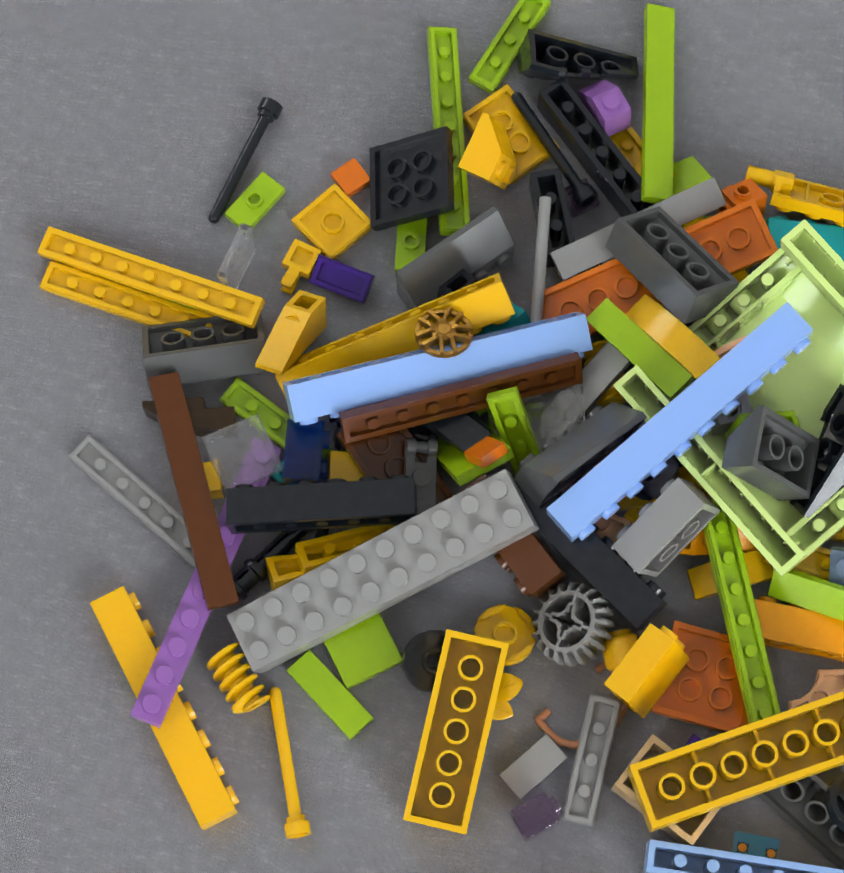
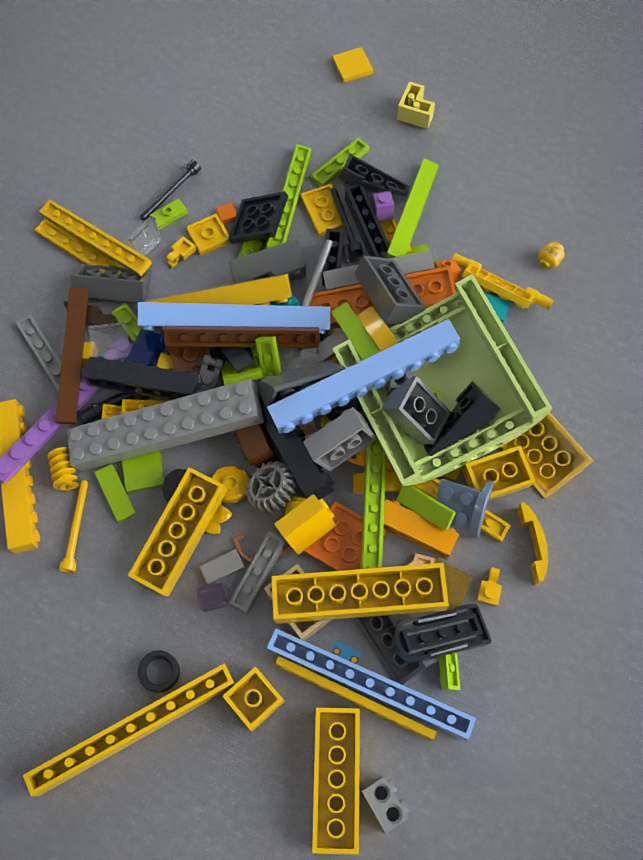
camera: 15 degrees right, 5 degrees down
(294, 331) = (164, 281): yellow slope -> none
(341, 278) = (202, 264): dark purple tile -> none
(443, 332) = (241, 296): pearl gold wheel -> none
(486, 452) = (245, 370): orange tile -> none
(490, 153) = (306, 213): yellow slope -> none

